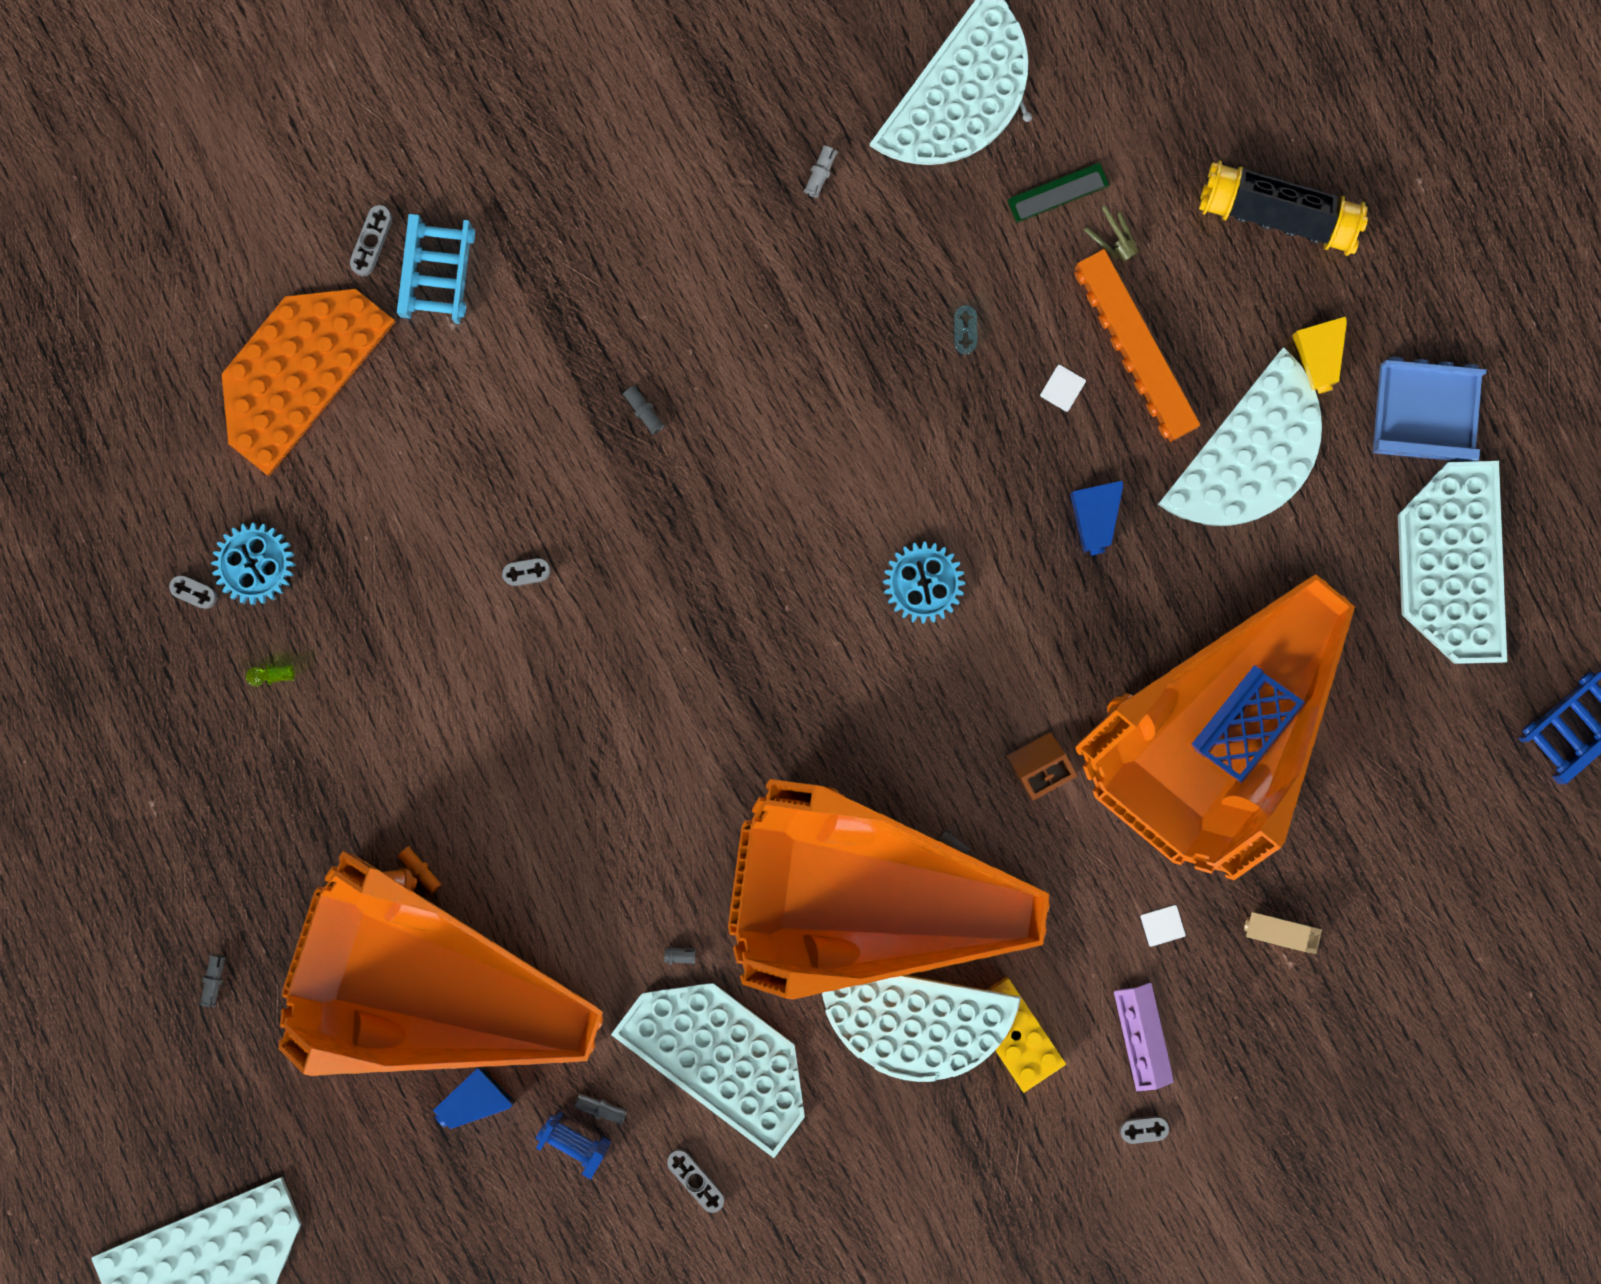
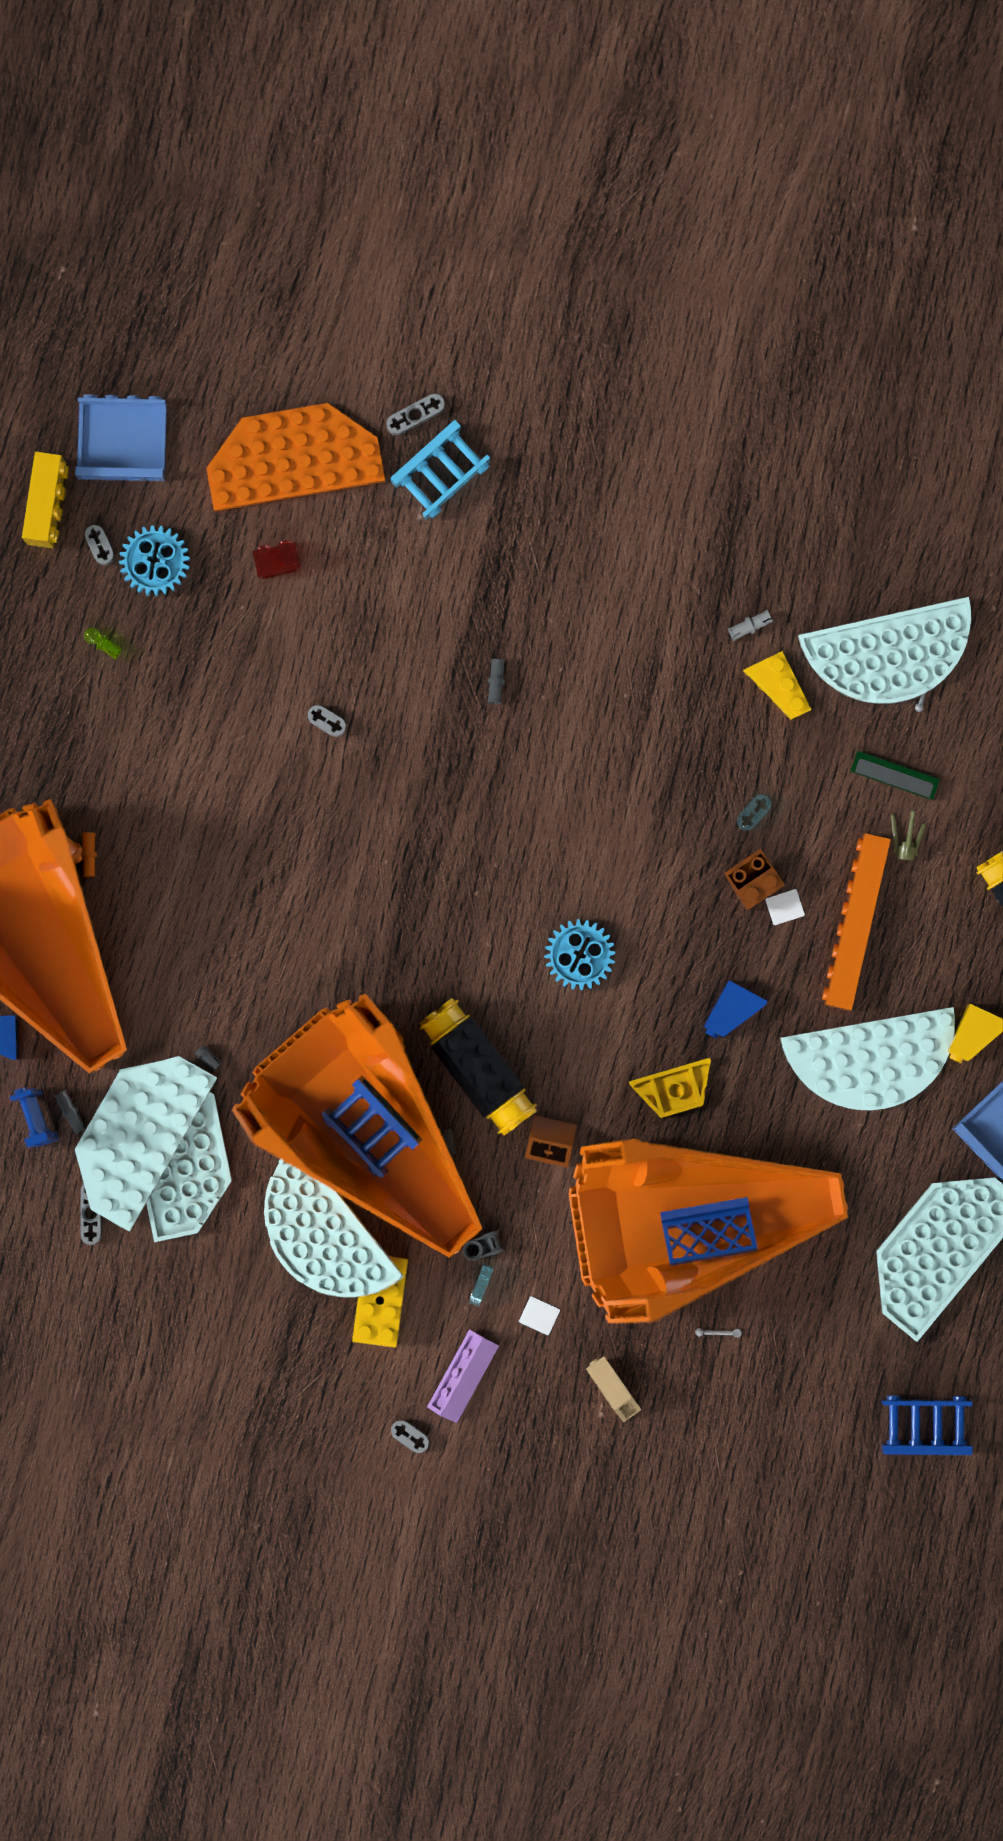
camera: 45 degrees right, 0 degrees up
(109, 594) = (44, 500): none -> yellow brick
(131, 482) = (121, 438): none -> medium blue panel
(360, 470) = (276, 560): none -> clear red brick
(678, 1076) = (138, 1135): none -> light aqua plate
(891, 200) = (779, 683): none -> yellow wing
(891, 870) = (392, 1122): none -> blue fence
(922, 757) = (477, 1067): none -> black brick
(1017, 386) = (754, 879): none -> dark orange slope
(1064, 906) = (485, 1245): none -> dark grey piece
(1090, 944) = (481, 1285): none -> clear light blue beam
(1107, 626) = (674, 1088): none -> yellow wing
(1344, 791) = (700, 1332): none -> light grey hinge

